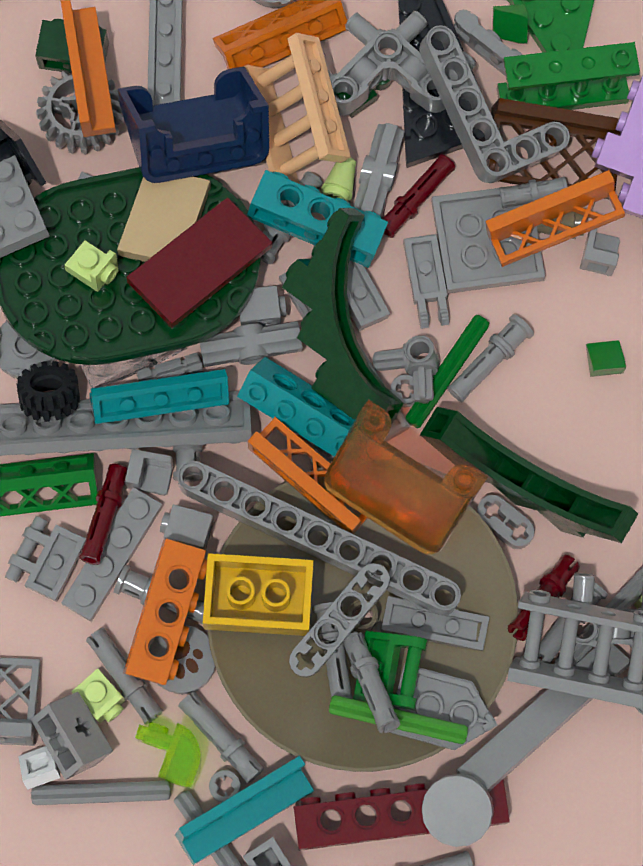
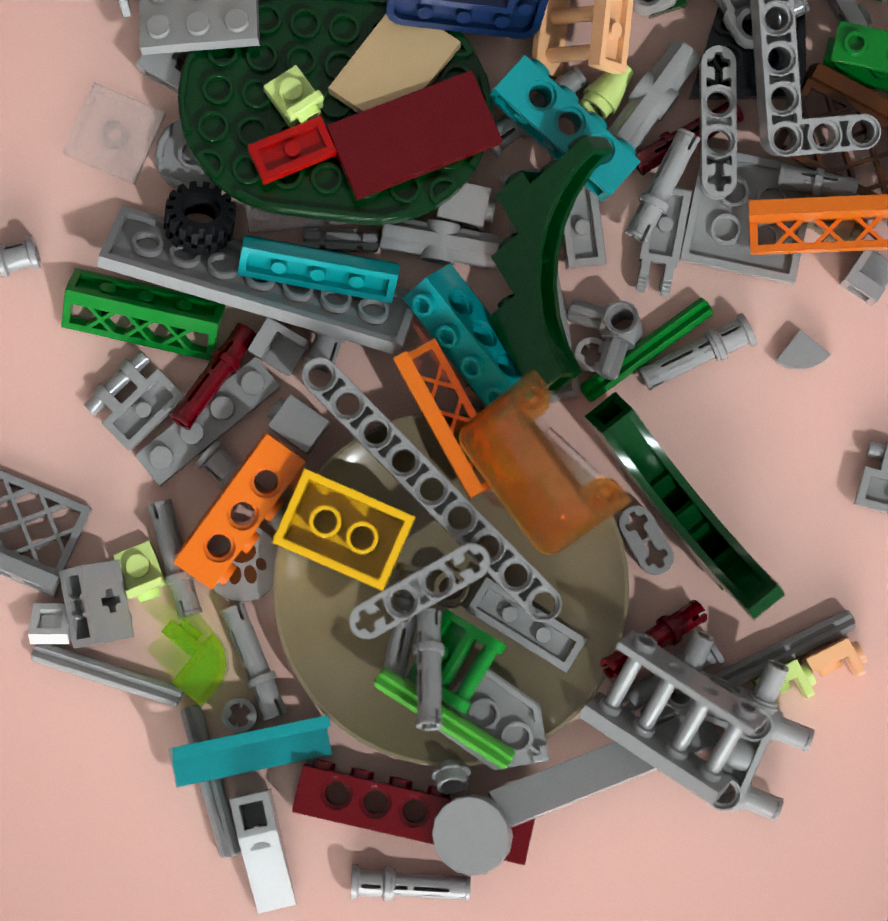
camera: 25 degrees right, 10 degrees up
(105, 306) = (292, 150): none -> red plate
(411, 242) = (659, 192): none -> light grey pin
(421, 770) = (451, 777): none -> light grey plate
(439, 173) = (712, 122): none -> light grey beam
(572, 330) = (802, 353): none -> light grey tile
(605, 358) = (827, 397): green slope -> none

